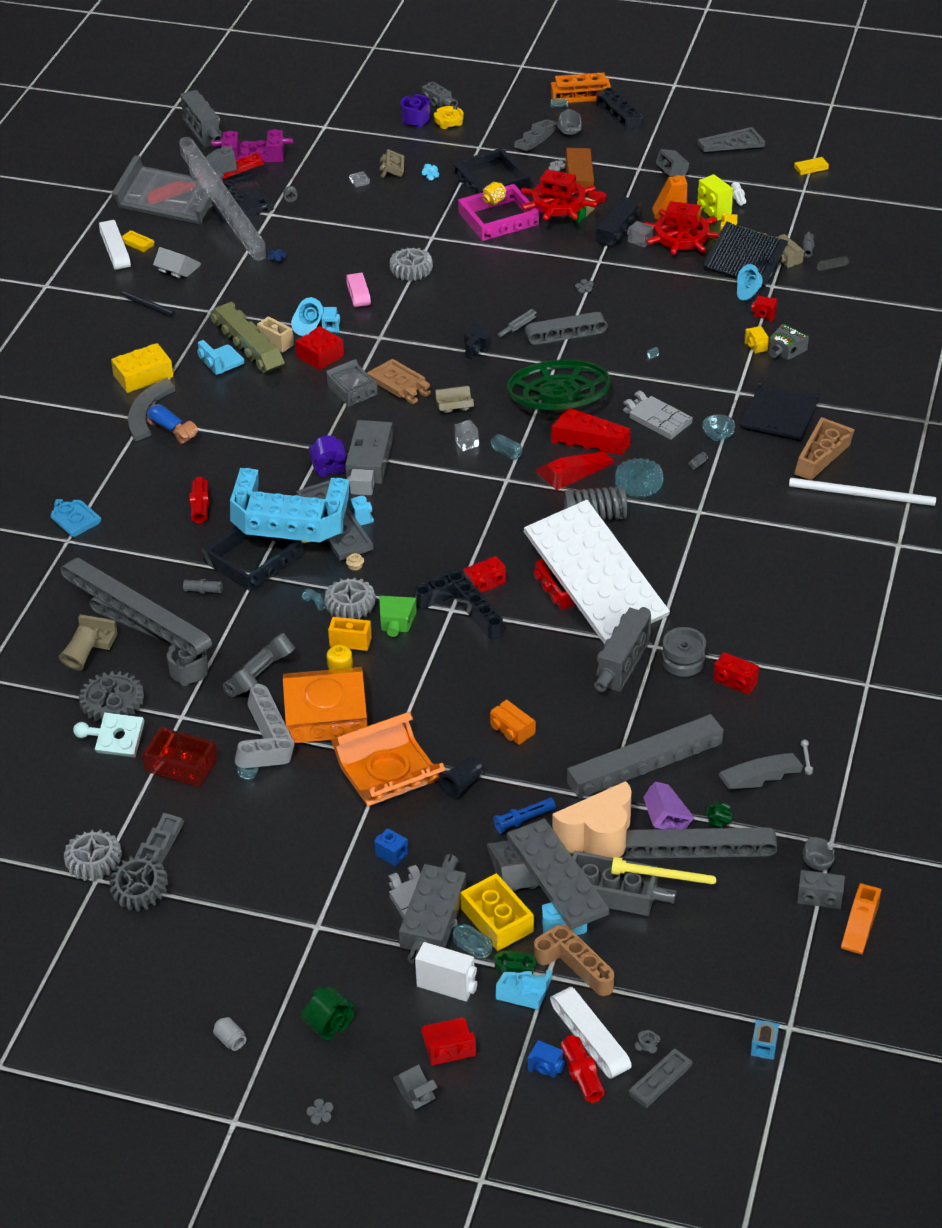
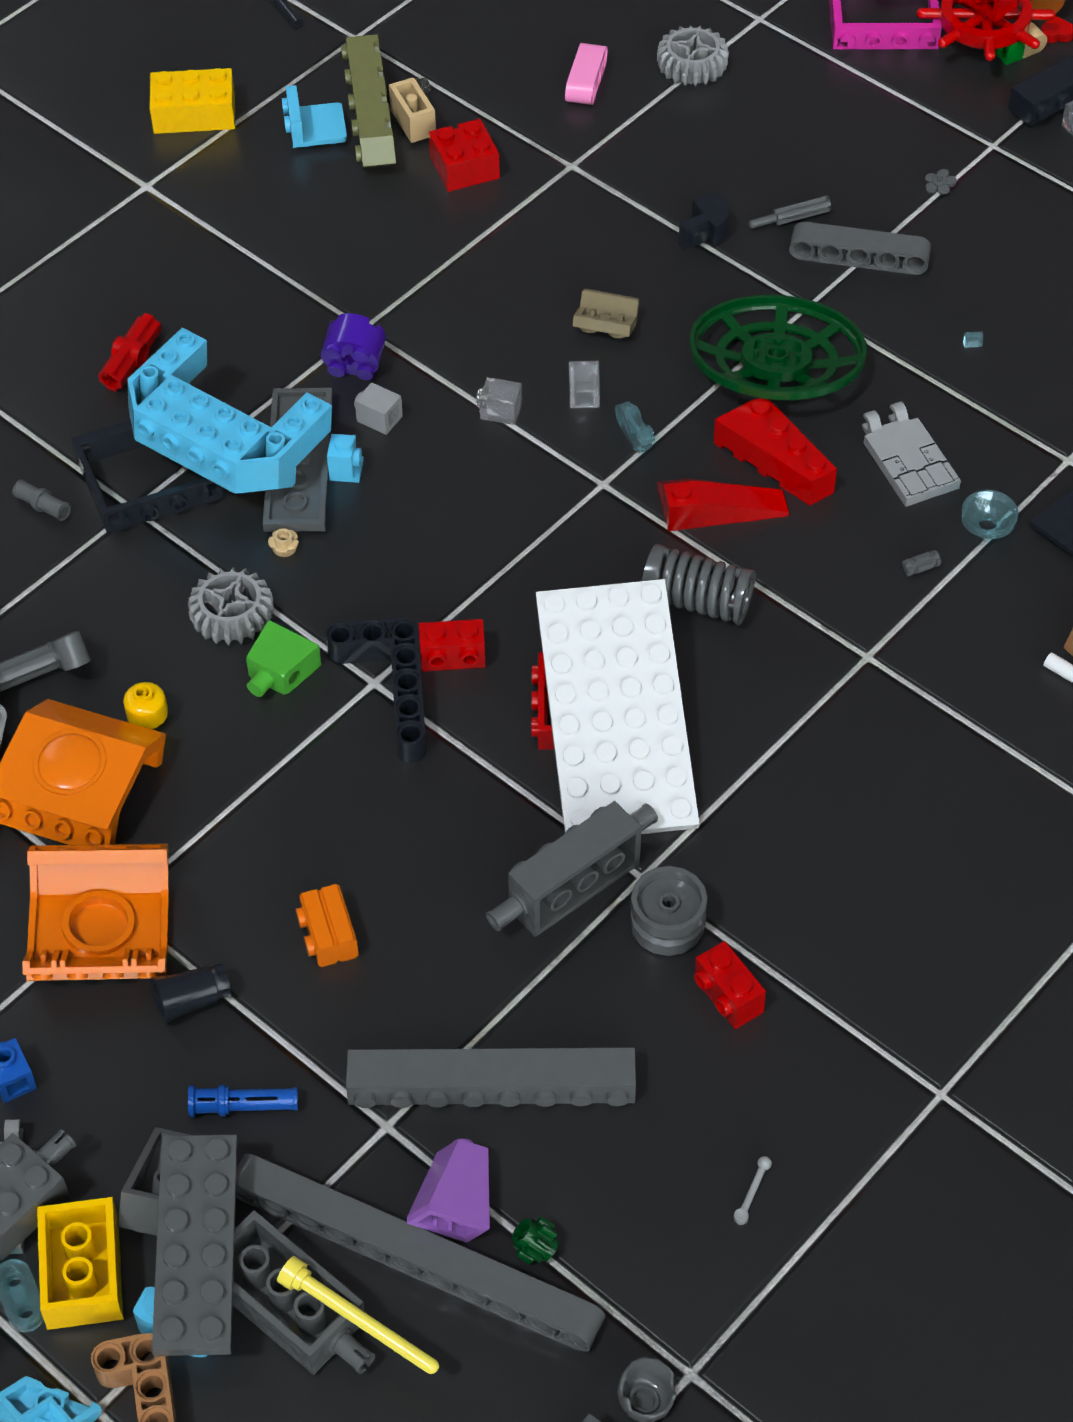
camera: 25 degrees right, 10 degrees up
(139, 408) = (156, 163): dark grey tile -> none
(161, 415) = (167, 205): piece -> none
(307, 316) = (478, 95): medium azure piece -> none
(316, 597) = (184, 576): clear light blue arm -> none
(330, 319) = (512, 111): medium azure brick -> none
(350, 633) = (187, 668): light orange brick -> none
(351, 383) = (473, 231): dark grey window -> none
(370, 448) = (425, 356): dark grey brick -> none
(400, 380) = (549, 250): medium nougat tile -> none
(426, 457) = (500, 400): none -> clear brick
(514, 962) = (63, 1358): dark green beam -> none
(596, 823) = (313, 1182): light nougat brick -> none
(639, 477) = (804, 559): clear light blue gear -> none
(757, 771) = (654, 1185): dark grey slope -> none

